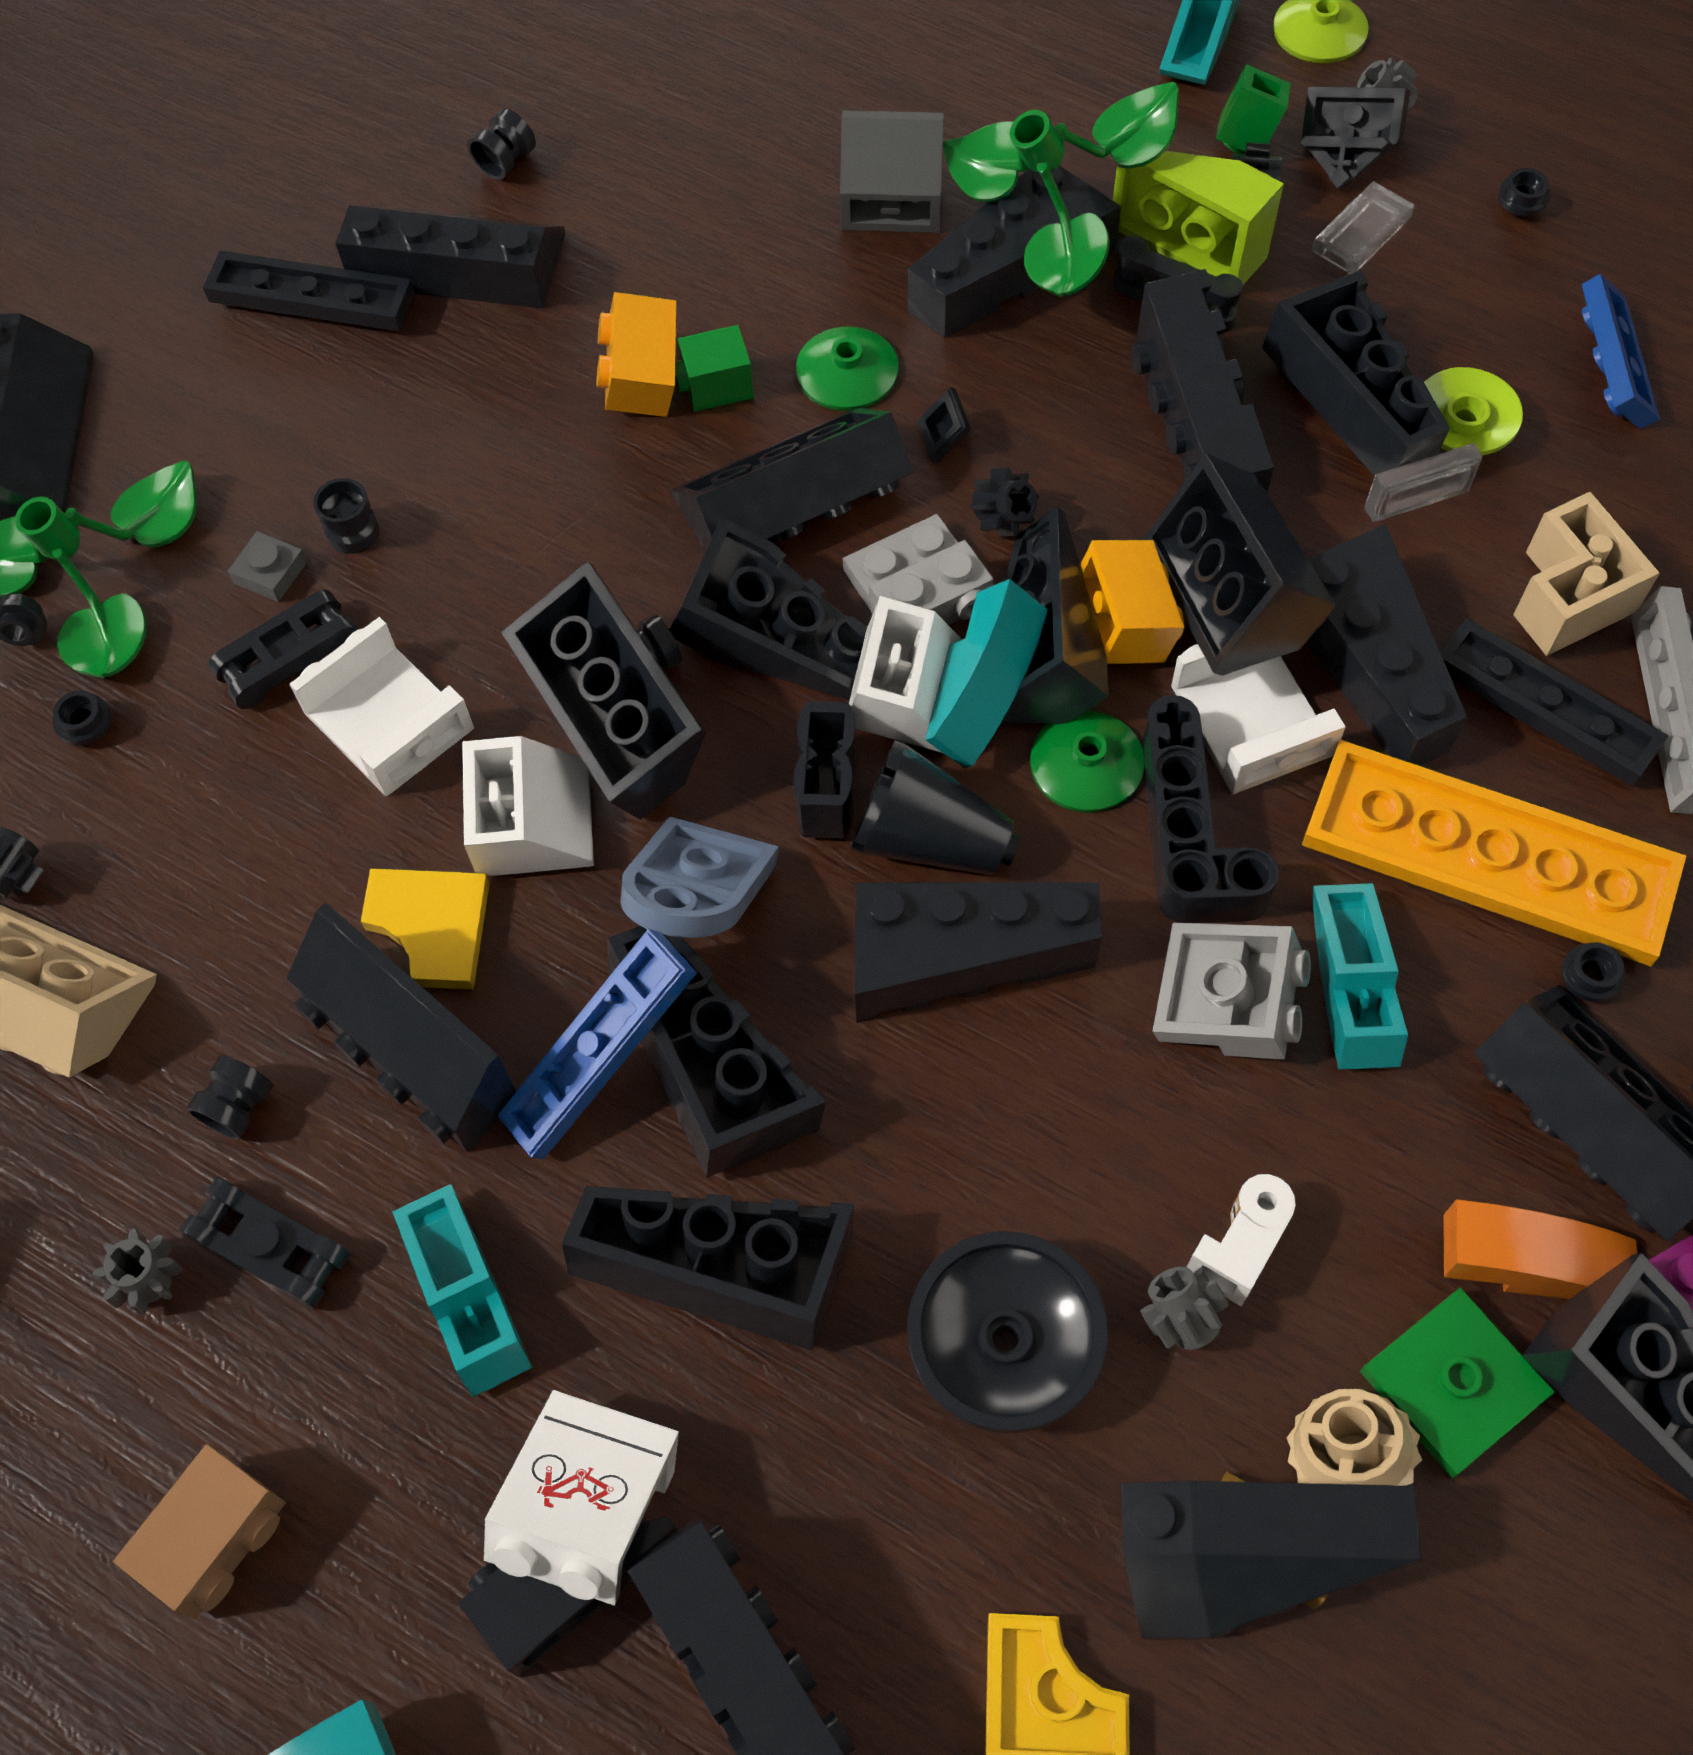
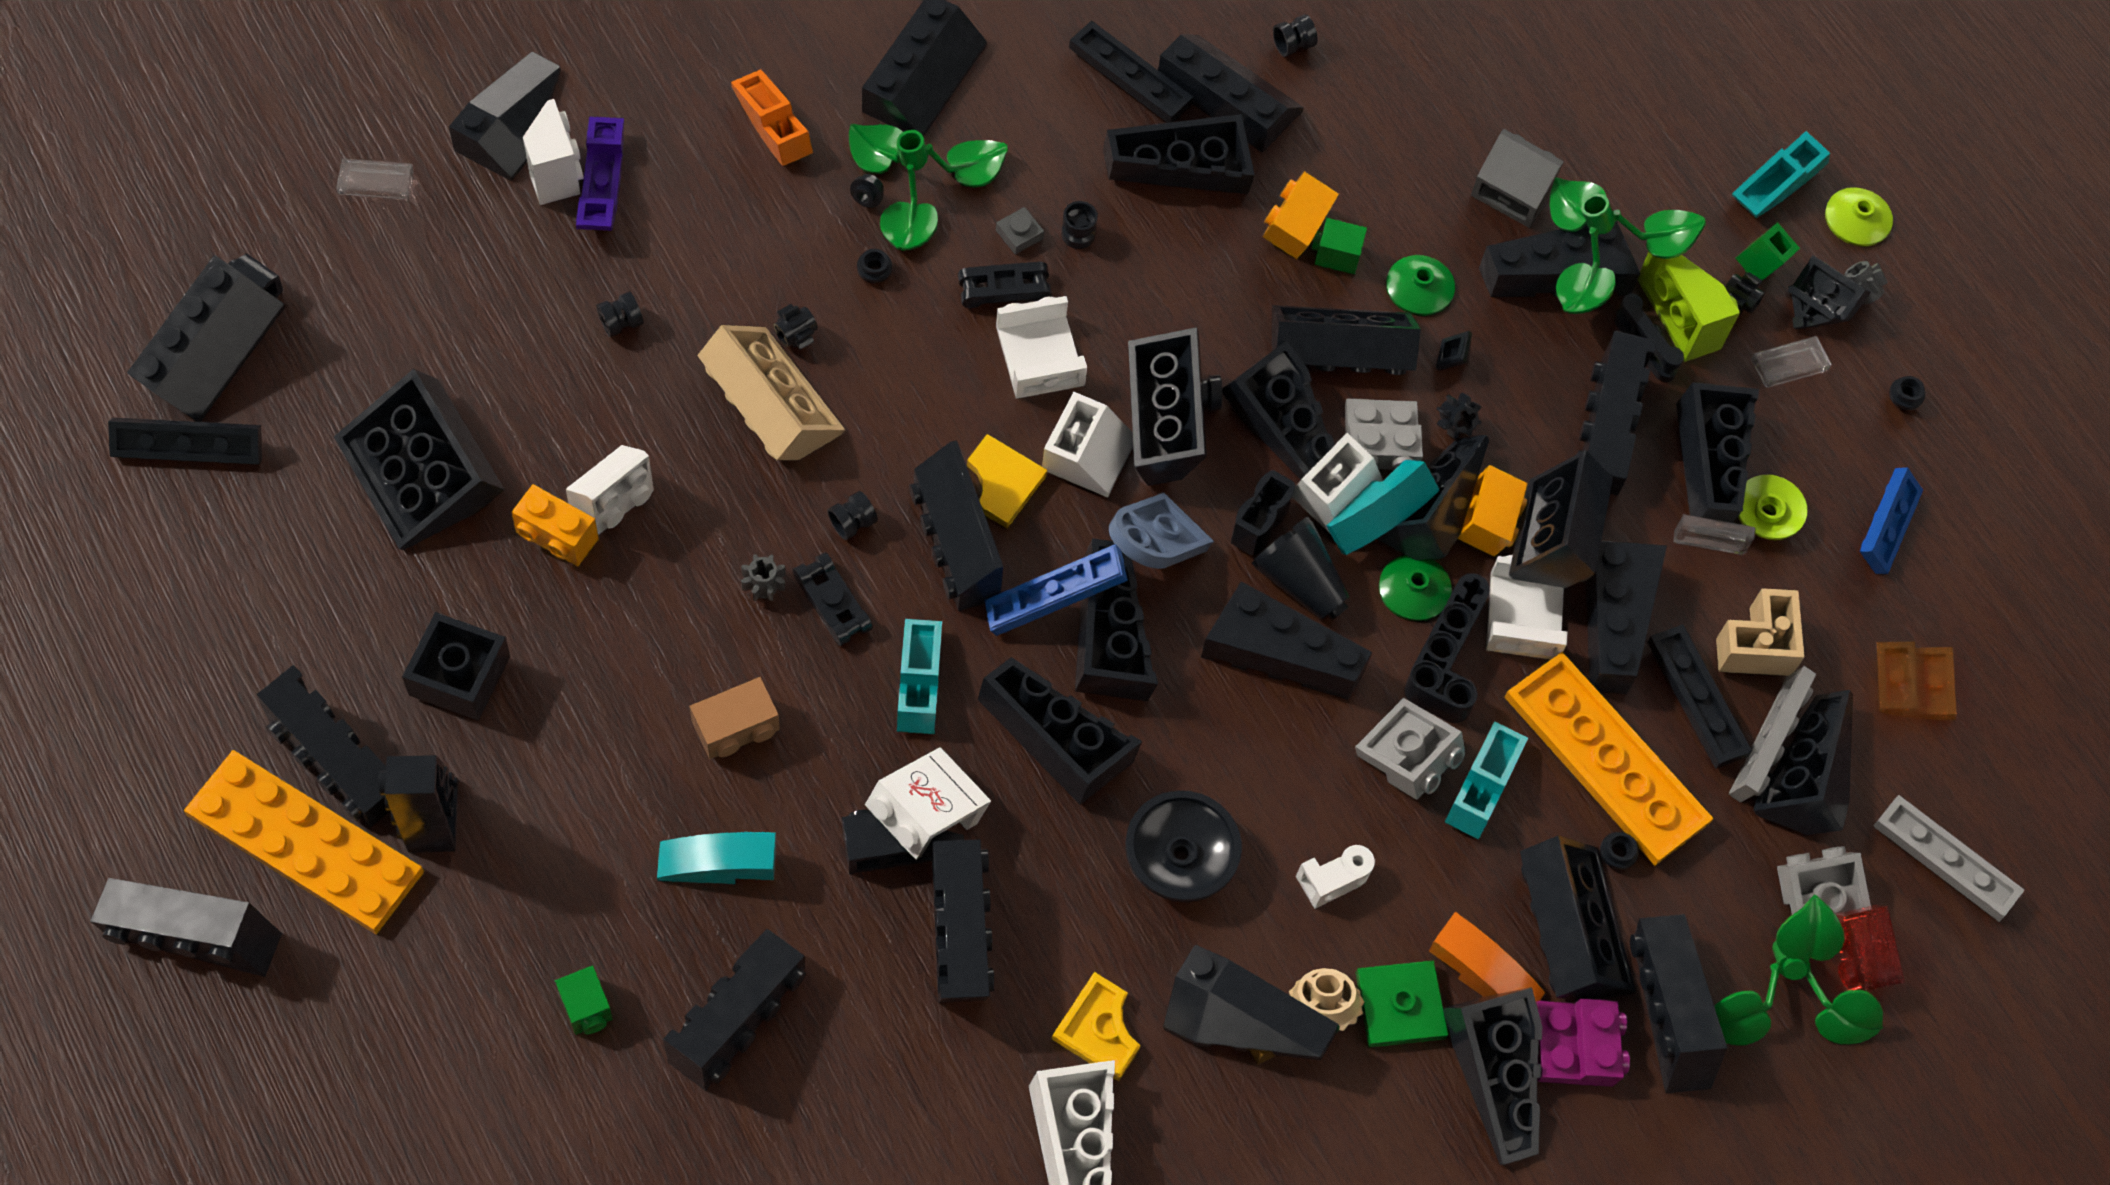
camera: 20 degrees right, 0 degrees up
(436, 355) = (1182, 154): none -> black wedge
(1184, 1308) = (1282, 888): dark grey gear -> none

